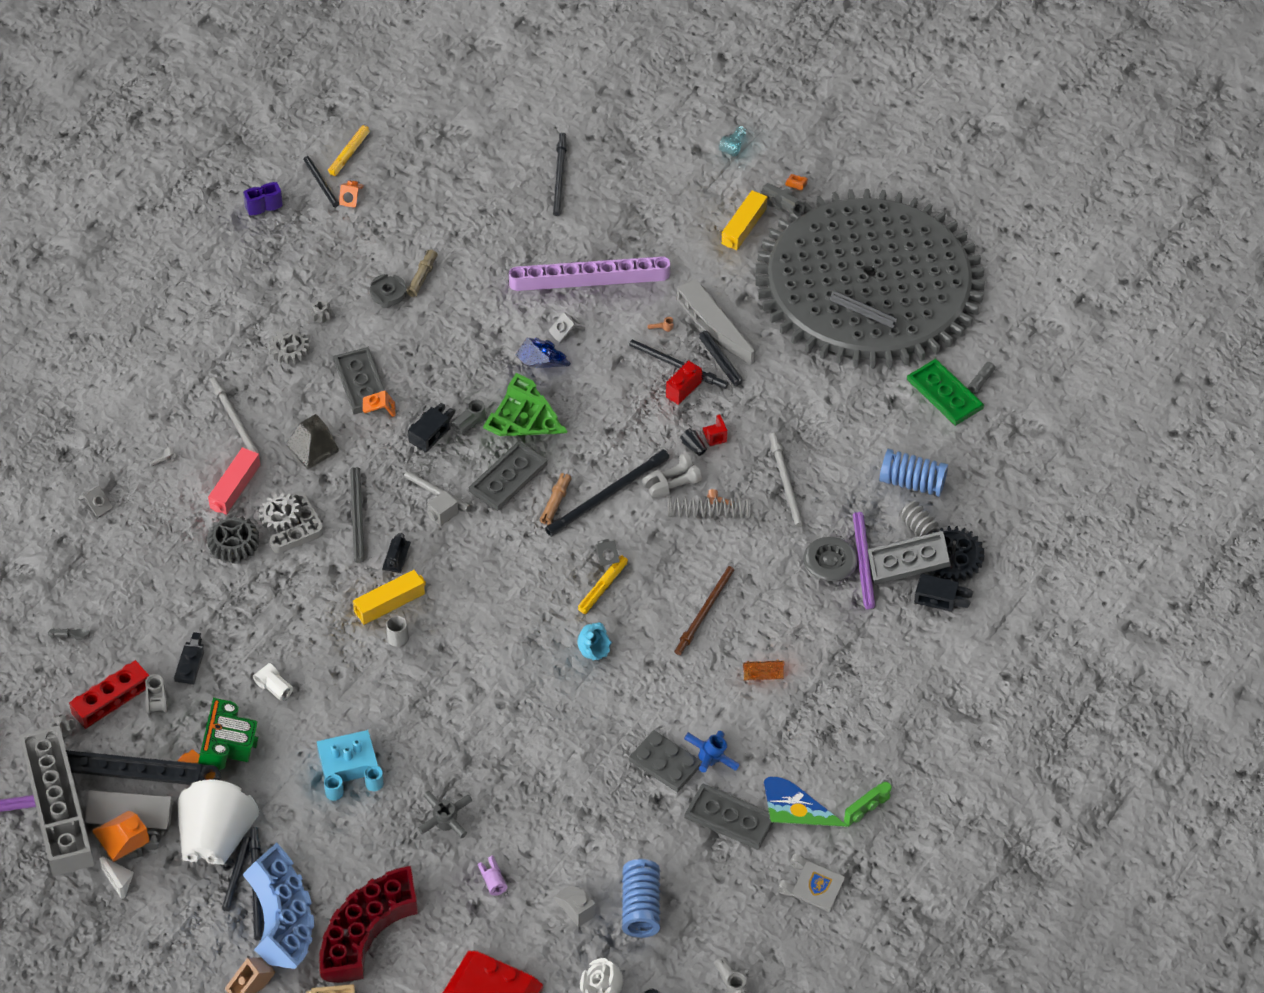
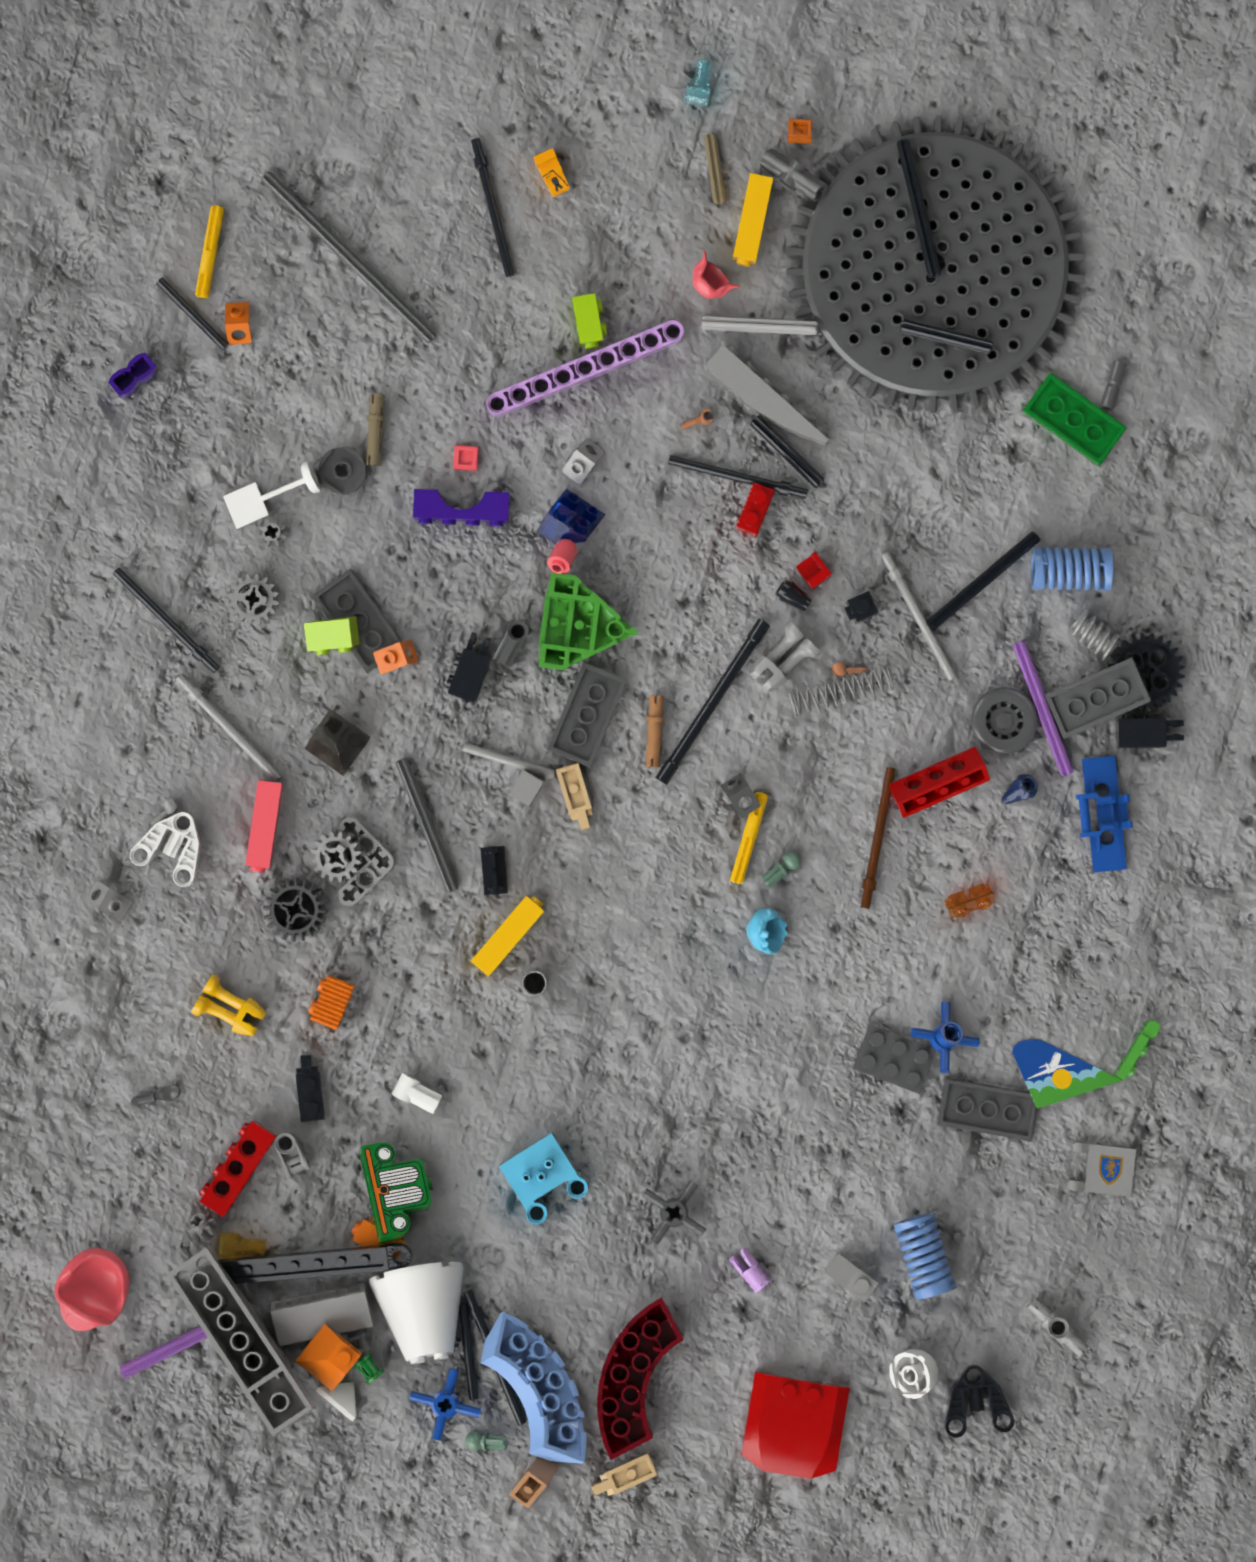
camera: 15 degrees left, 35 degrees up
(83, 743) = (233, 1245): none -> clear yellow pin
(146, 572) = (214, 989): none -> yellow piece
(149, 860) = (368, 1368): none -> green bush
(164, 476) = (155, 836): none -> white connector
(200, 903) = (447, 1393): none -> blue bar
(222, 941) = (476, 1441): none -> sand green axle
(234, 368) = (199, 652): none -> black bar
(234, 604) = (331, 1002): none -> orange brick
(314, 292) = (248, 505): none -> white piece
(337, 376) = (332, 634): none -> brick
(446, 177) = (349, 257): none -> dark grey axle
(478, 523) = (575, 794): none -> tan hinge
(481, 306) = (466, 458): none -> coral tile
(485, 336) = (491, 509): none -> dark purple arch
(528, 367) = (562, 556): none -> coral brick
(602, 244) = (588, 322): none -> lime brick
(609, 161) = (551, 172): none -> light orange leg
(630, 607) = (790, 861): none -> sand green axle
(699, 245) = (707, 271): none -> coral hair
(727, 189) = (714, 168): none -> dark tan axle
(727, 277) = (759, 325): none -> light grey axle
(743, 460) = (861, 608): none -> black brick
(765, 581) = (939, 782): none -> red brick
(830, 604) = (1021, 789): none -> dark blue animal
(839, 471) = (983, 580): none -> black axle
(867, 234) = (918, 208): none -> black axle
(896, 641) = (1111, 813): none -> blue piece

